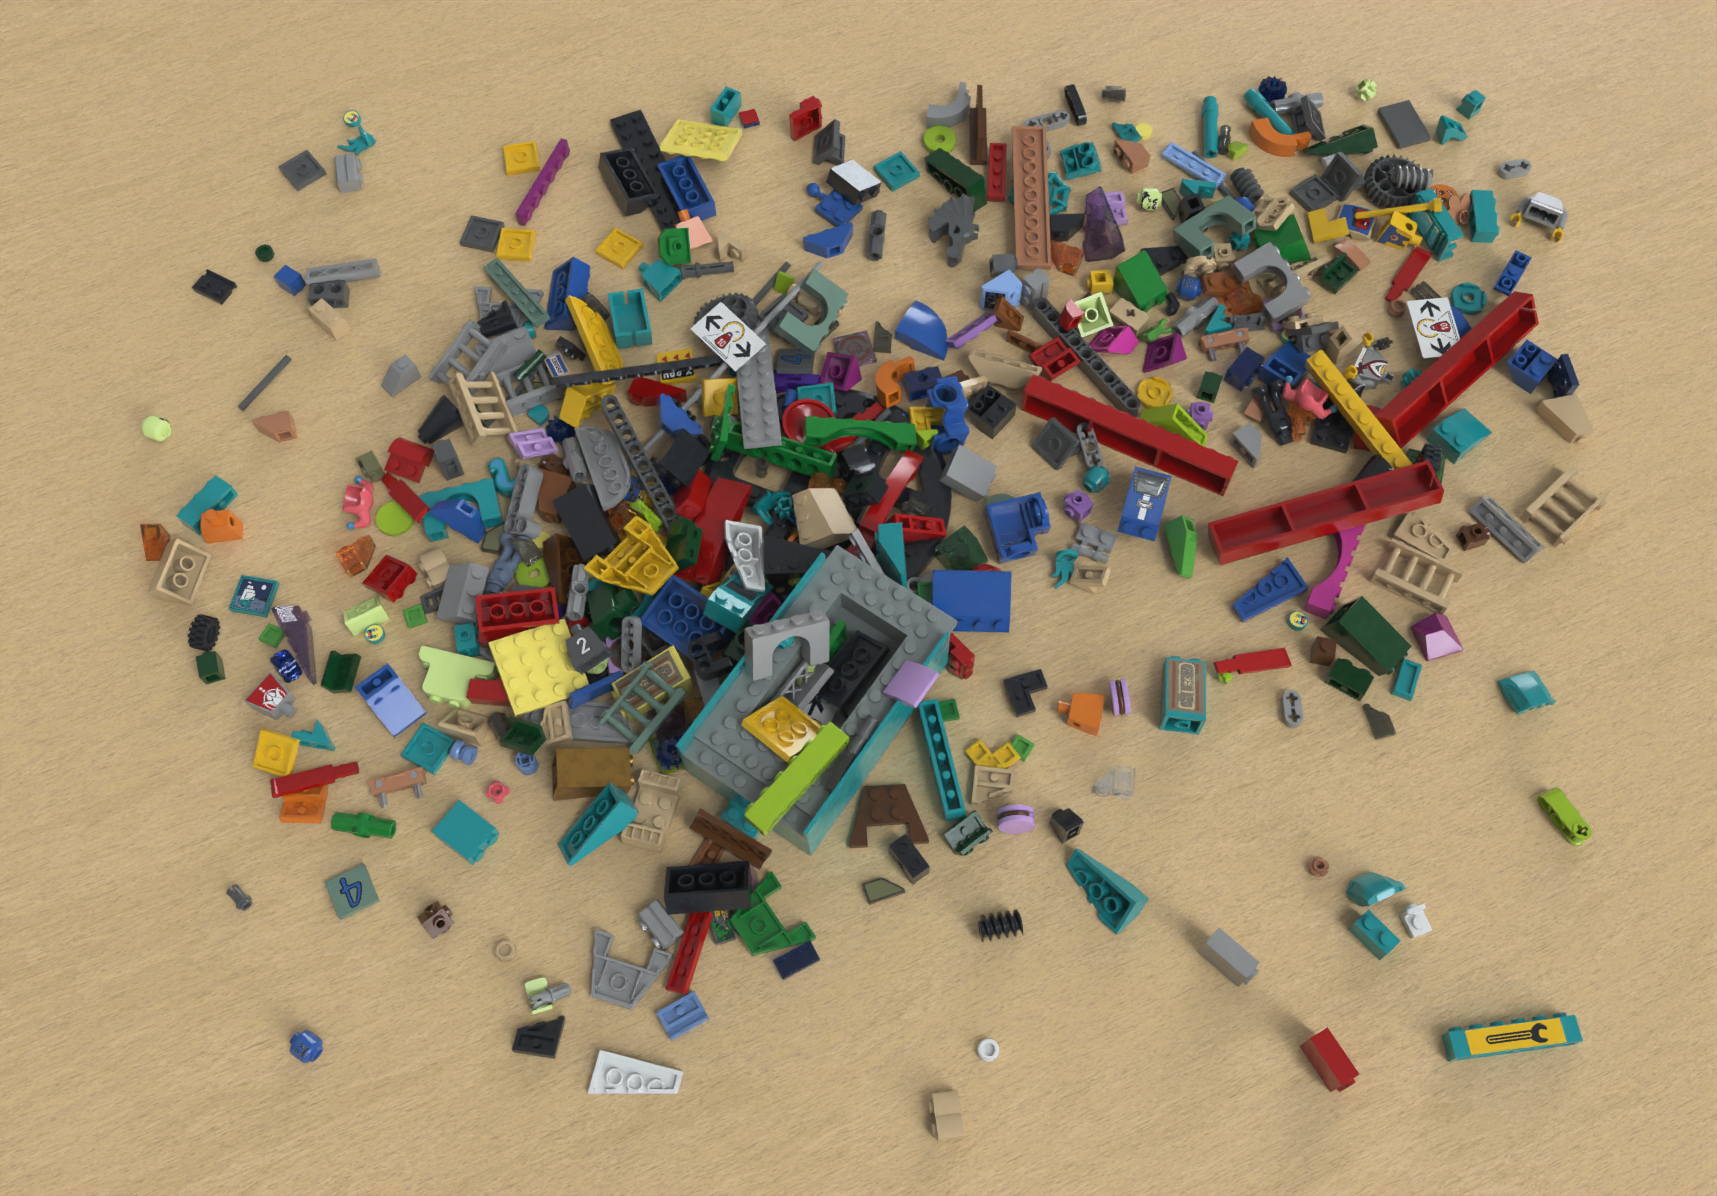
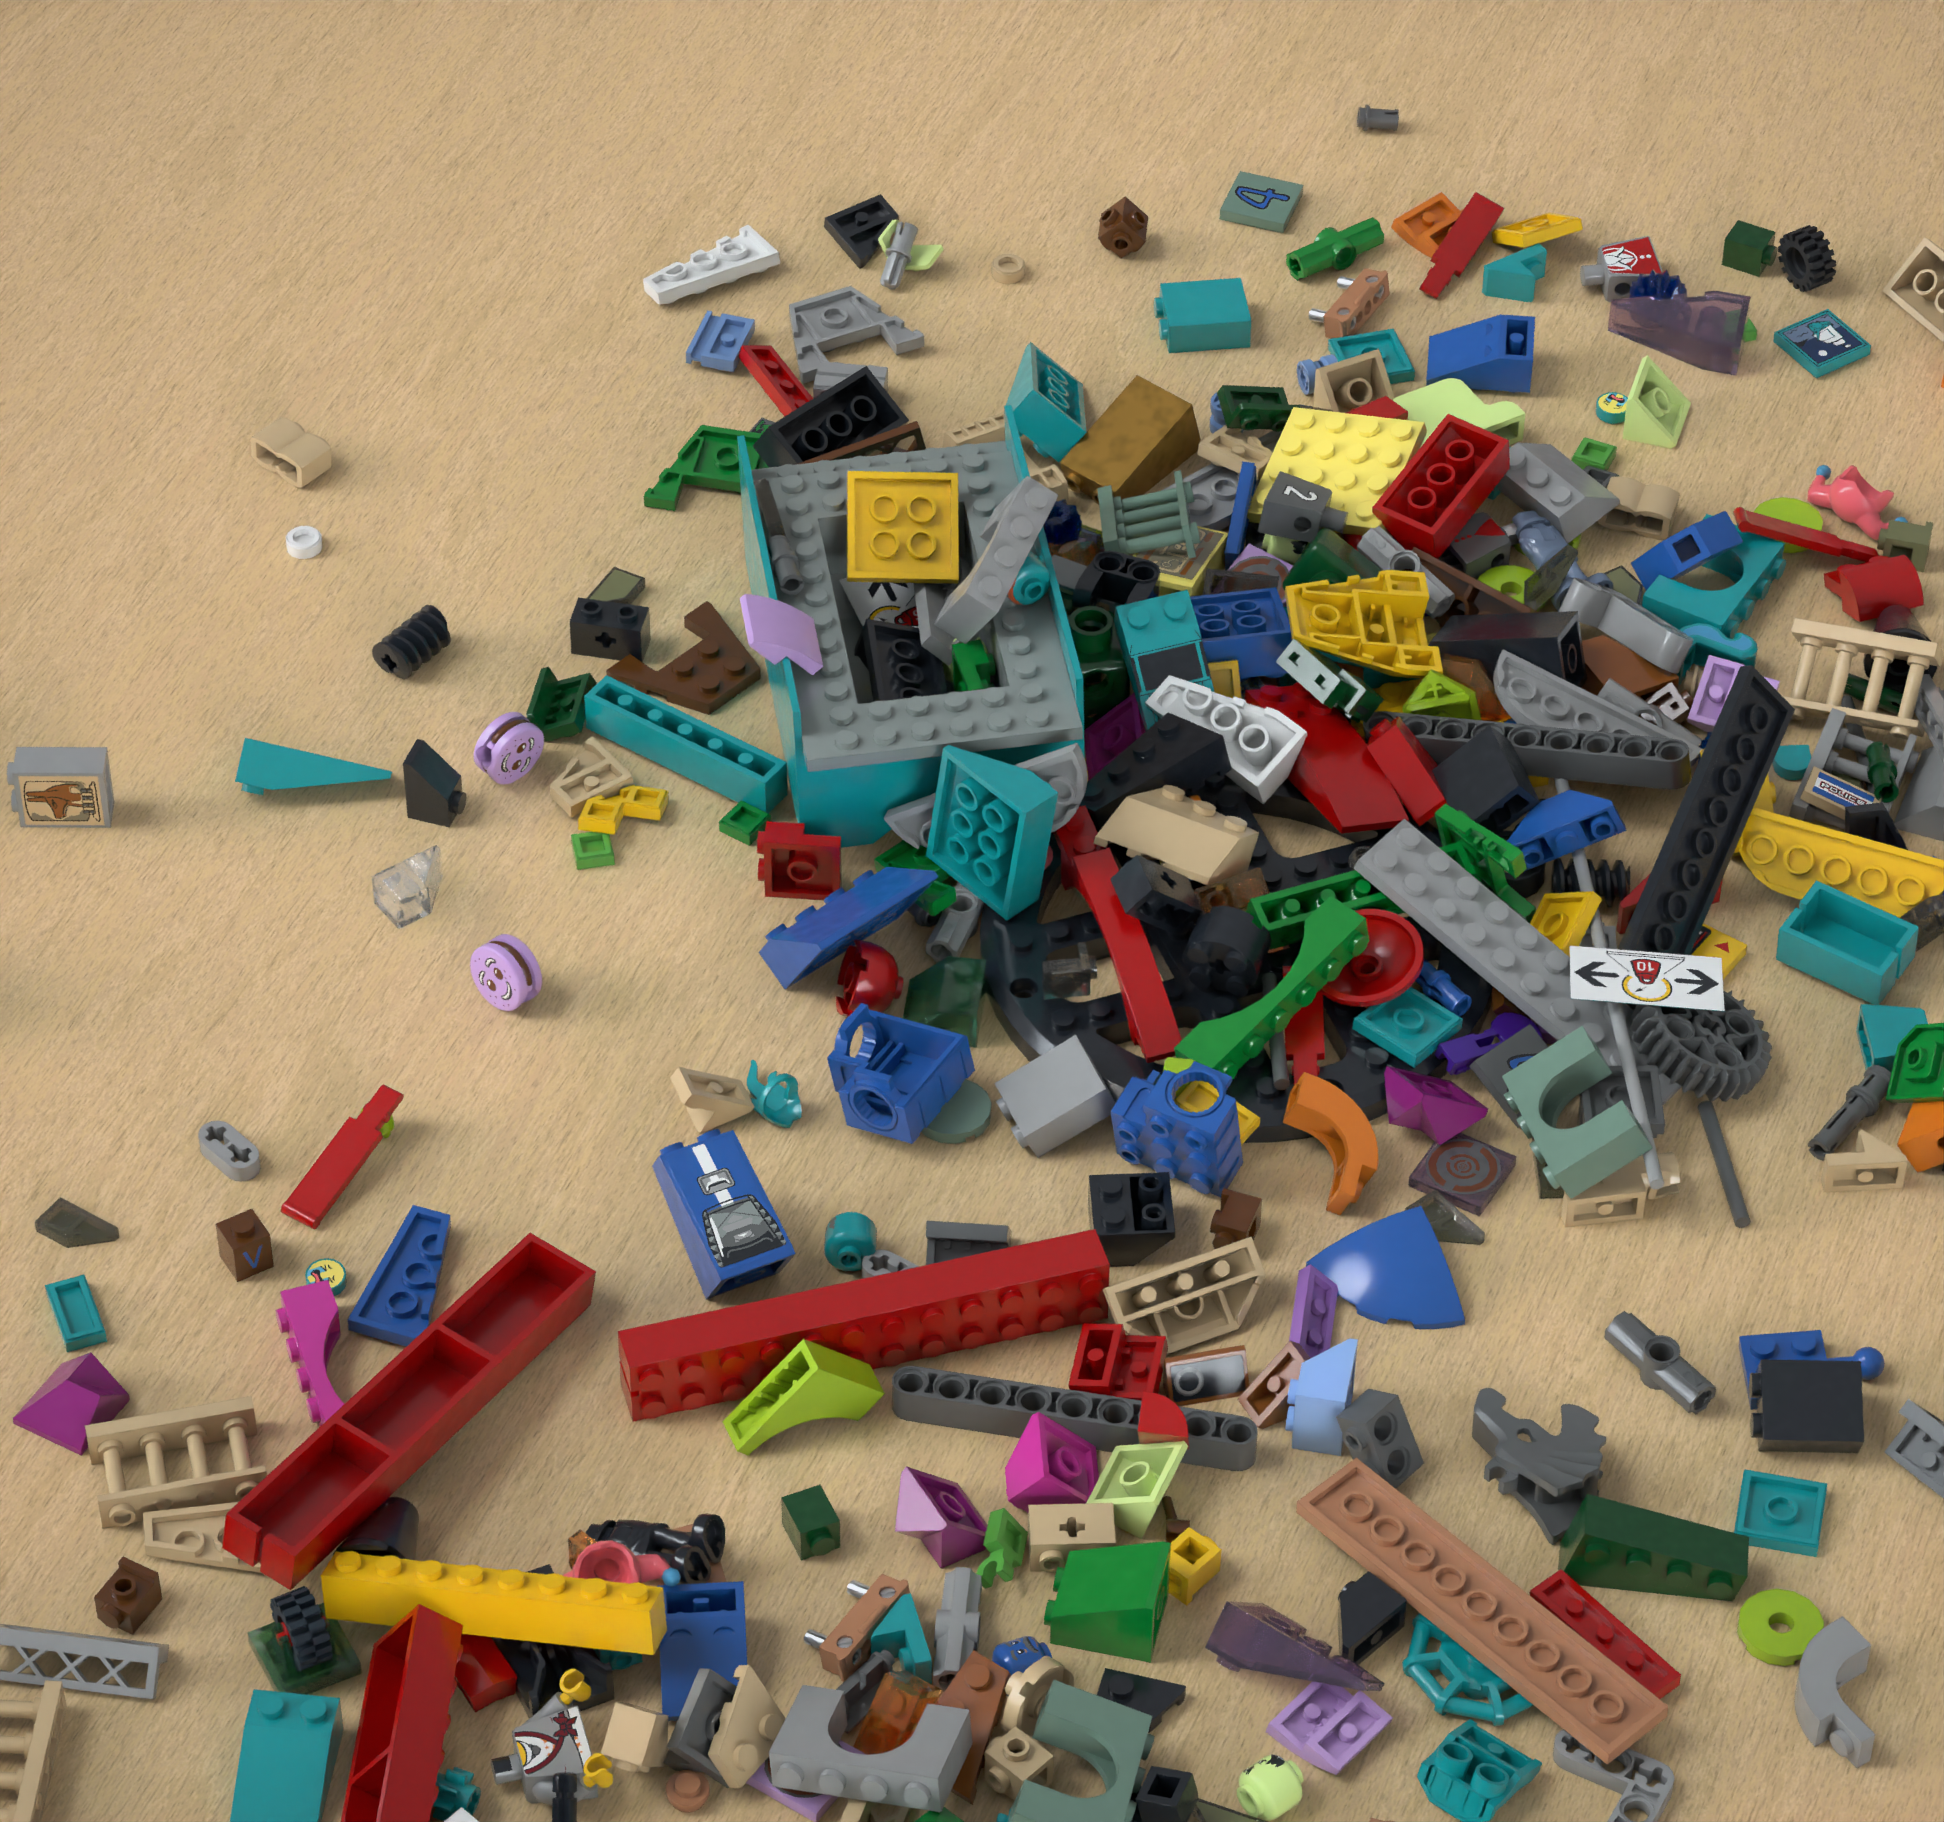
camera: 135 degrees right, 20 degrees down
(306, 1046) = (1113, 67): blue head -> none
(340, 672) = (1589, 341): dark green bracket -> none
(356, 556) = (1761, 448): clear orange slope -> none
(390, 578) = (1680, 457): red plate -> none
(448, 459) = (1813, 596): dark grey brick -> none
(497, 786) = (1224, 372): coral plate -> none
(636, 630) = (1254, 563): light grey beam -> none
(766, 503) = (1295, 847): teal piece -> none
(783, 282) = (1702, 1184): lime slope -> none
(784, 508) = (1268, 848): teal gear -> none
(796, 960) = (643, 470): clear blue tile -> none
(797, 778) = (818, 475): lime brick -> none
(830, 241) = (1720, 1293): blue slope -> none
(919, 381) = (1291, 1188): clear blue brick -> none
(919, 527) = (1048, 937): red slope -> none
(973, 386) = (1202, 1202): tan wing -> none
(978, 131) = (1729, 1690): reddish brown fence -> none
(1021, 687) = (664, 907): black plate -> none
(1034, 287) = (1279, 1447): light grey brick -> none
(1066, 257) = (1298, 1564): clear orange slope -> none
(1077, 505) = (837, 1179): medium lavender brick -> none
(1084, 711) = (546, 931): orange torso -> none
(1094, 538) = (776, 1168): light grey plate -> none
(1154, 392) = (890, 1450): yellow tile -> none
(1173, 304) = (1017, 1624): black arm -> none
(1182, 541) = (612, 1238): bright green slope -> none
(1183, 695) = (411, 1036): slope -> none
(1200, 413) = (780, 1455): medium lavender brick -> none
(1244, 369) = (777, 1588): clear blue brick -> none
(1247, 443) = (652, 1474): light grey slope -> none
(1318, 871) = (20, 987): nougat plate -> none
(1349, 678) = (169, 1240): dark green brick -> none
(1367, 636) = (192, 1307): dark green slope -> none

